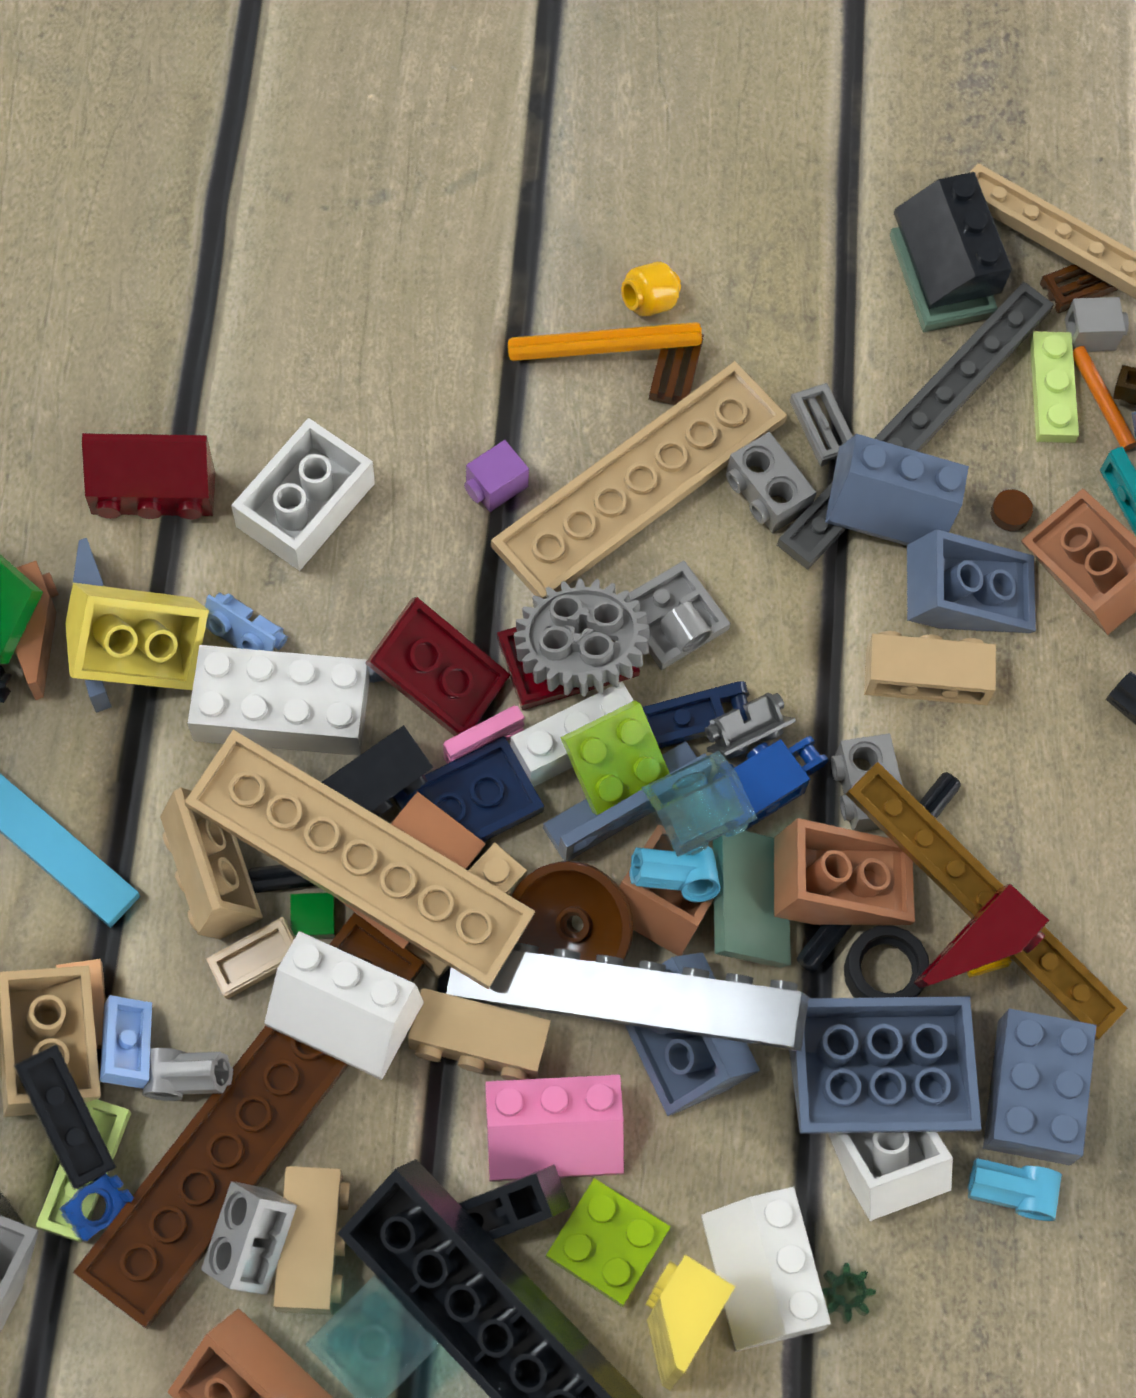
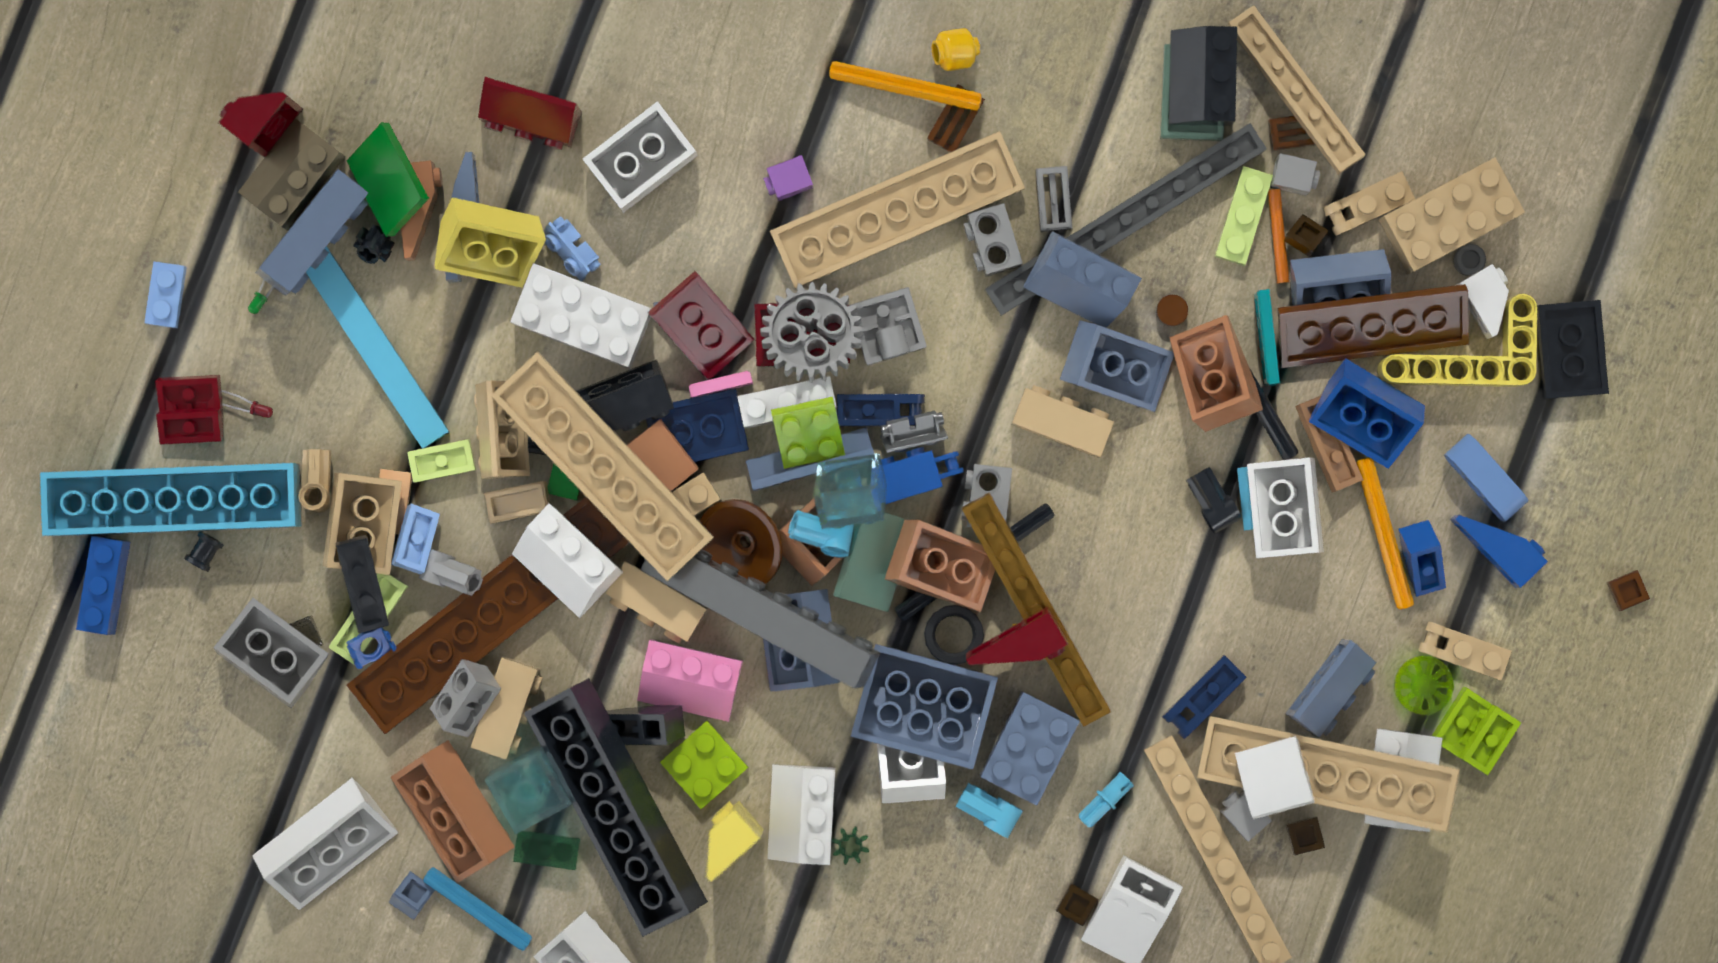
camera: 25 degrees right, 20 degrees up
(138, 932) = (441, 461): none -> yellowish green plate

